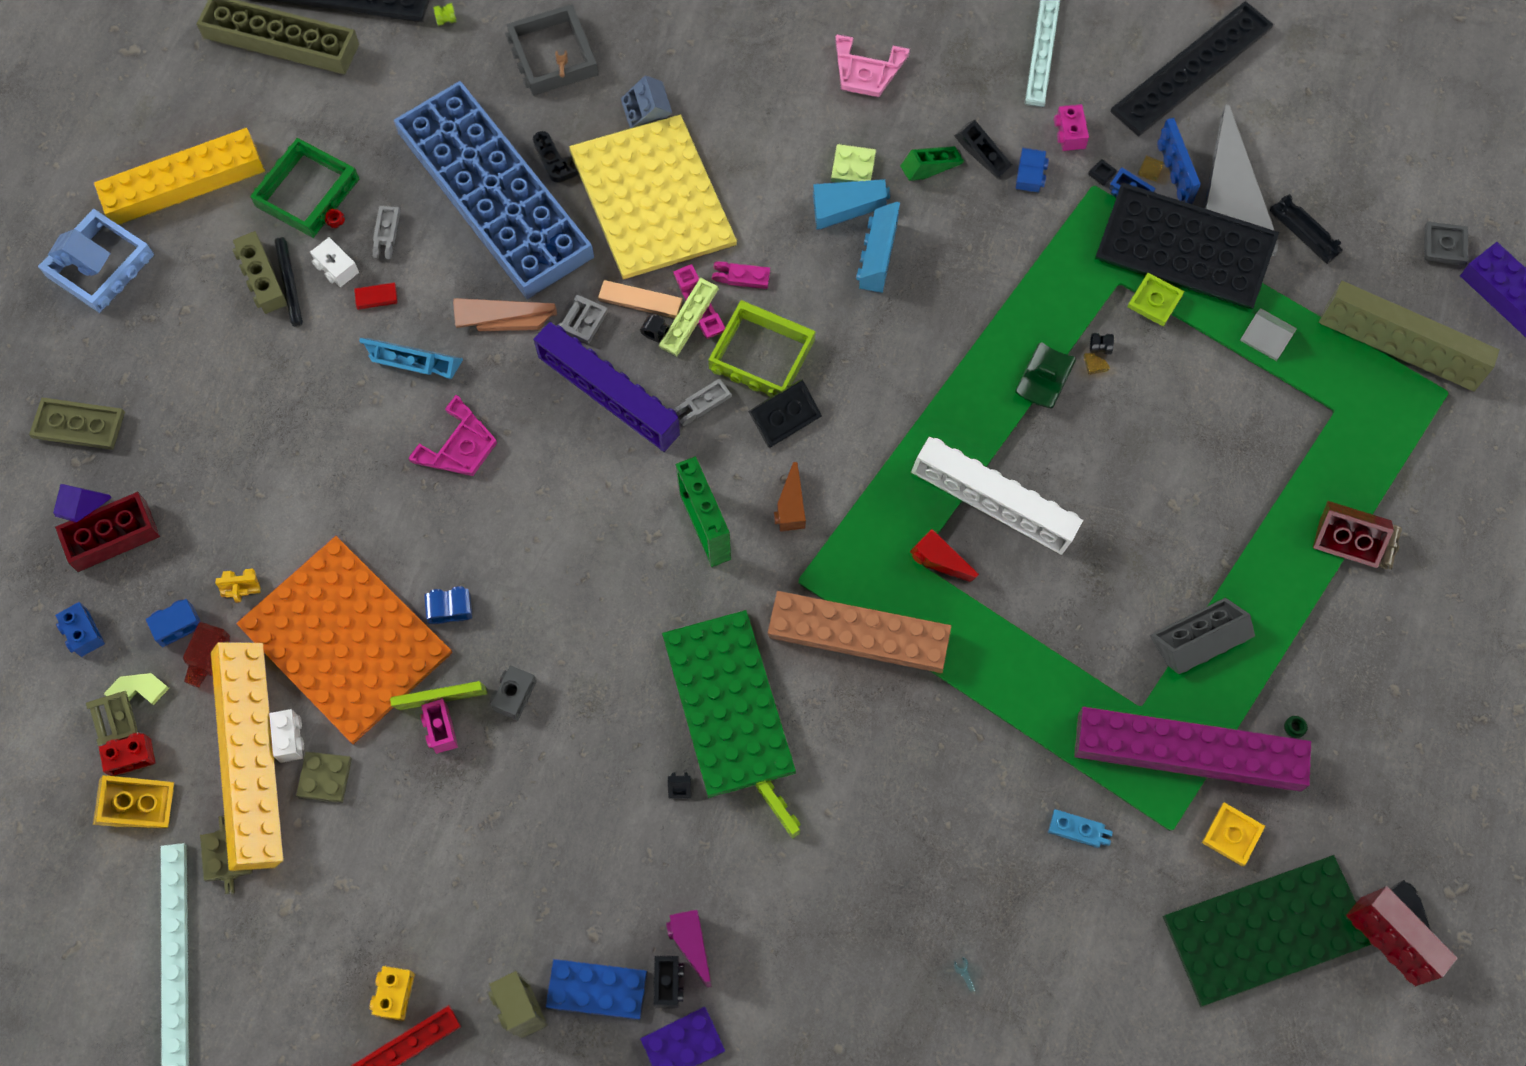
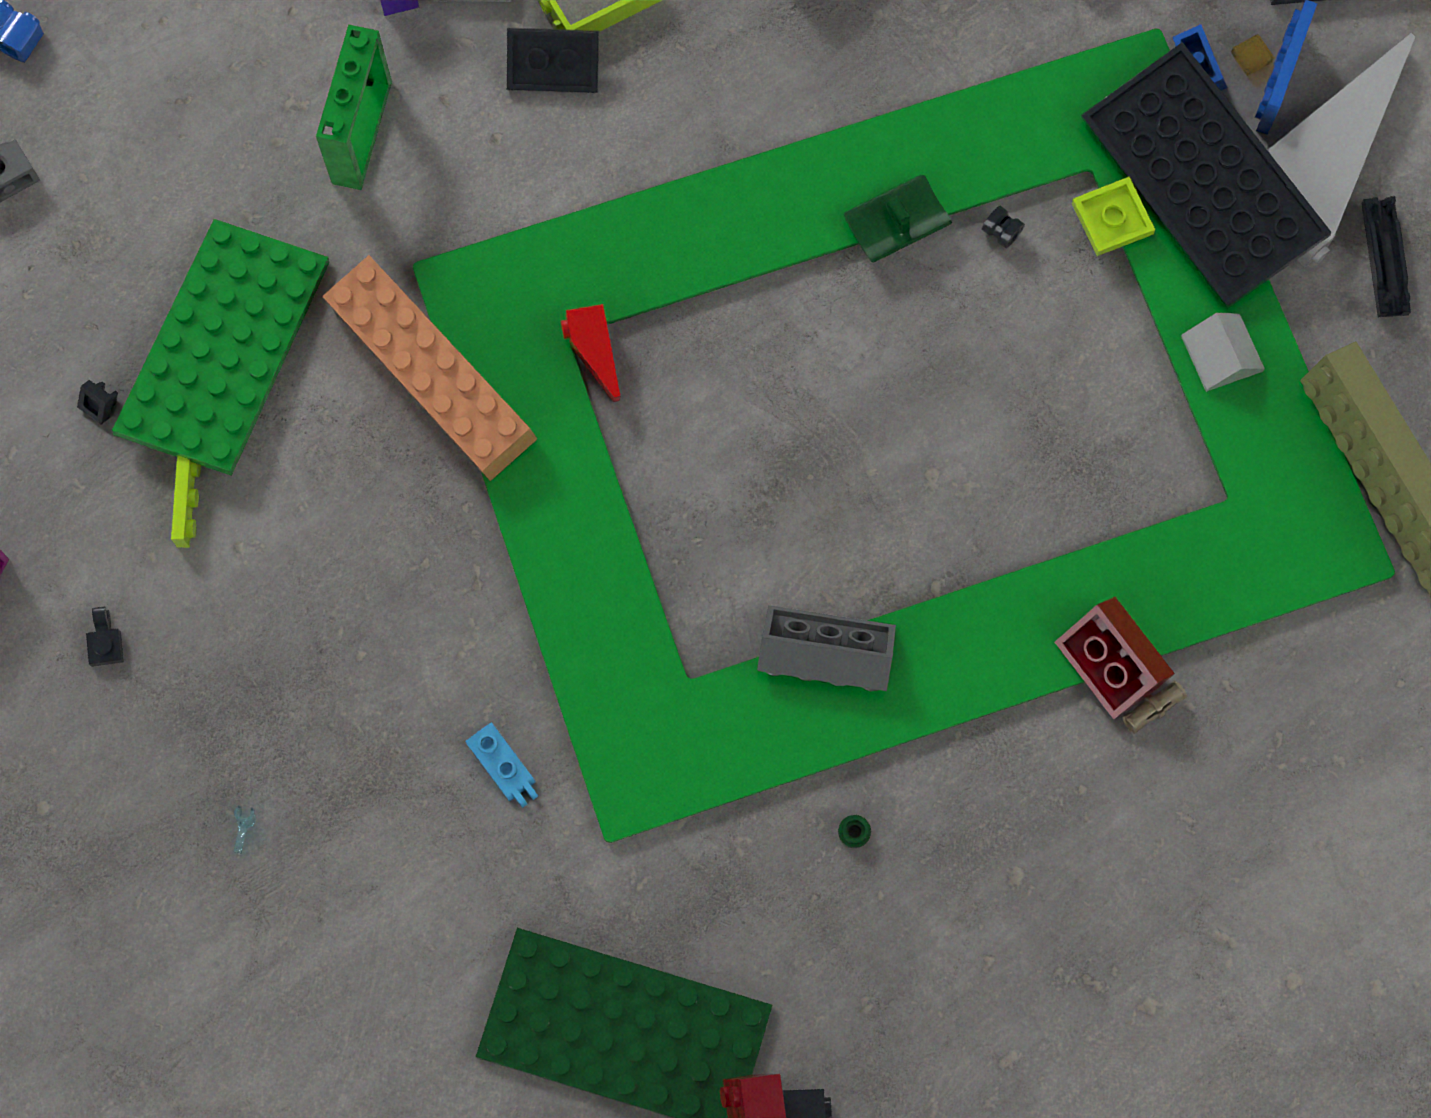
camera: 35 degrees right, 5 degrees up
(790, 507) = (476, 168): dark orange slope -> none
(797, 925) = (105, 644): none -> black plate
(996, 495) = (713, 317): white brick -> none
(1095, 364) = (977, 247): clear yellow tile -> none
(1102, 172) = (1185, 17): black tile -> none
(1193, 749) = (702, 766): magenta brick -> none
(1233, 834) = (673, 897): yellow plate -> none

